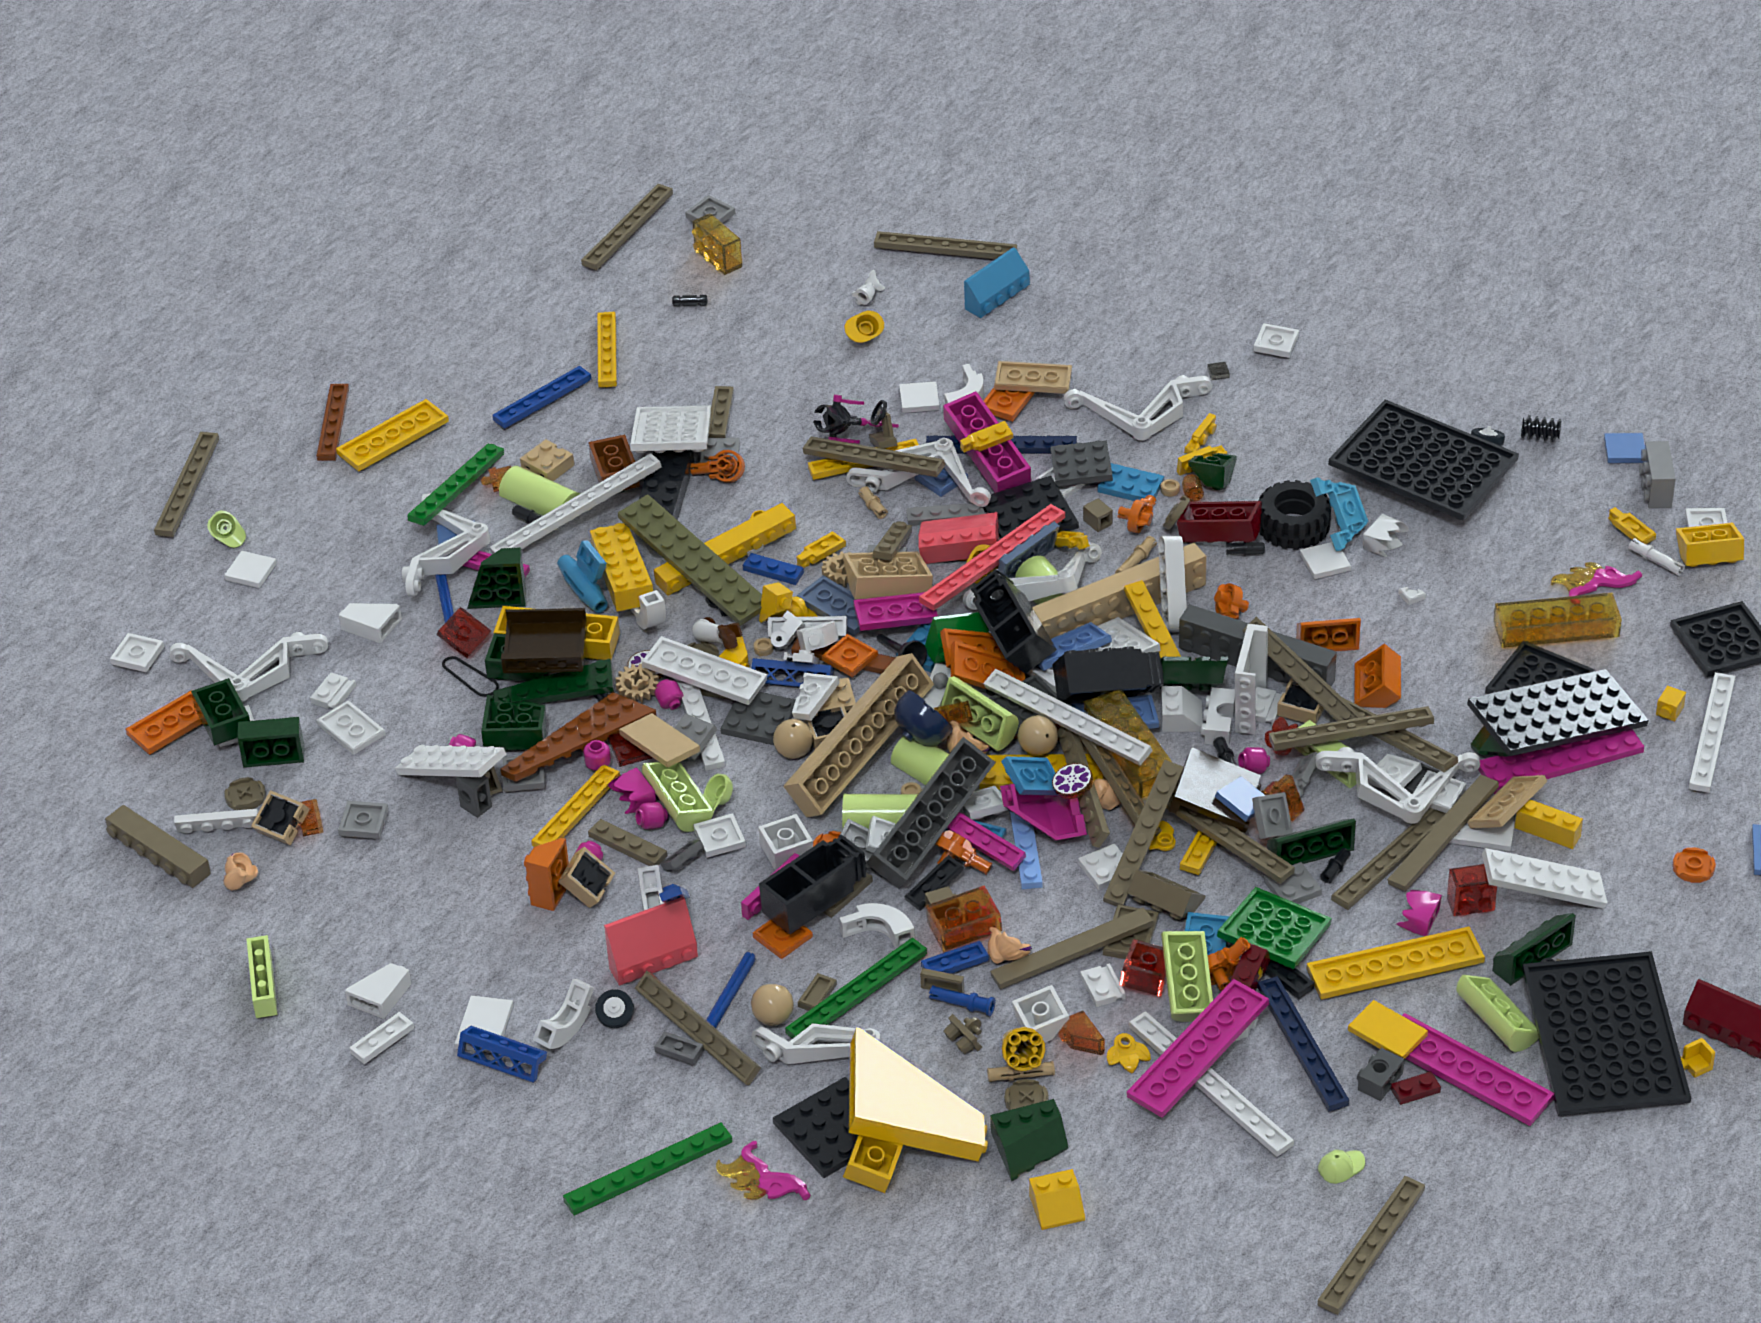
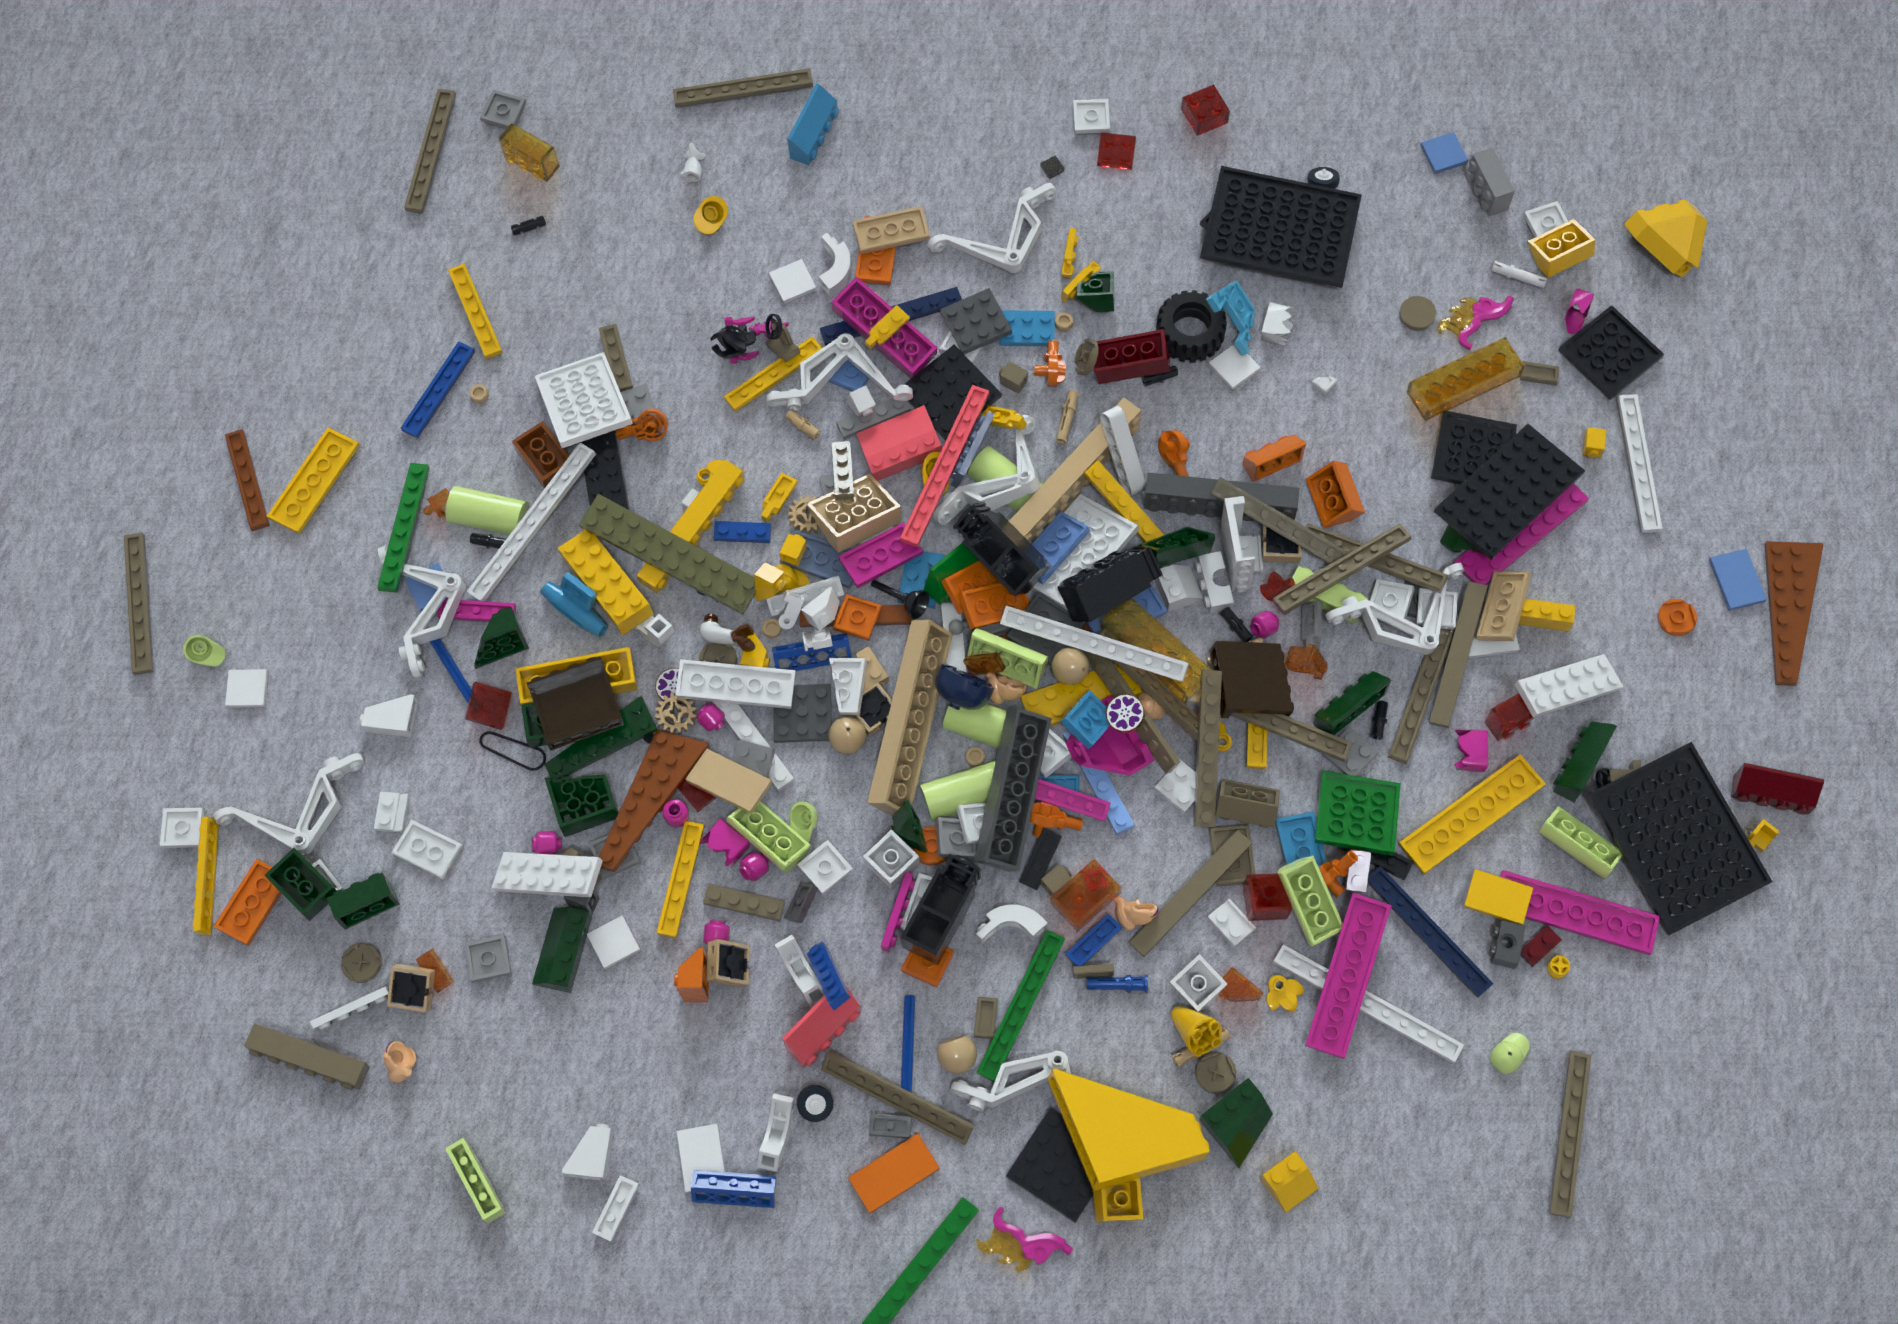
camera: 20 degrees left, 25 degrees up
(138, 692) = (205, 876): none -> yellow plate
(439, 831) = (562, 949): none -> dark green slope
(487, 840) = (613, 942): none -> white tile
(547, 460) = (476, 468): tan piece -> none
(578, 410) = (479, 393): none -> tan tile
(663, 1087) = (893, 1173): none -> orange tile
(812, 586) = (793, 549): none -> yellow brick
(816, 818) = (909, 828): none -> dark green slope
(874, 456) = (787, 377): dark tan plate -> none
(936, 491) = (861, 401): none -> white slope
(957, 1028) = (1143, 1029): dark tan hips -> none
(1192, 487) = (1086, 318): clear orange brick -> none
(1238, 797) = (1281, 683): tile -> none
(1272, 815) = (1312, 692): light grey plate -> none
(1288, 373) = (1116, 151): none -> clear red plate
(1392, 359) = (1205, 110): none -> clear red brick
(1426, 1101) = (1561, 964): none -> yellow wheel
(1535, 563) = (1417, 313): none -> dark tan tile
(1541, 428) = (1367, 153): black piece -> none
(1631, 526) = (1485, 246): yellow hinge -> none
(1641, 639) = (1540, 373): none -> dark tan tile
(1694, 594) = (1575, 318): none -> dark pink piece

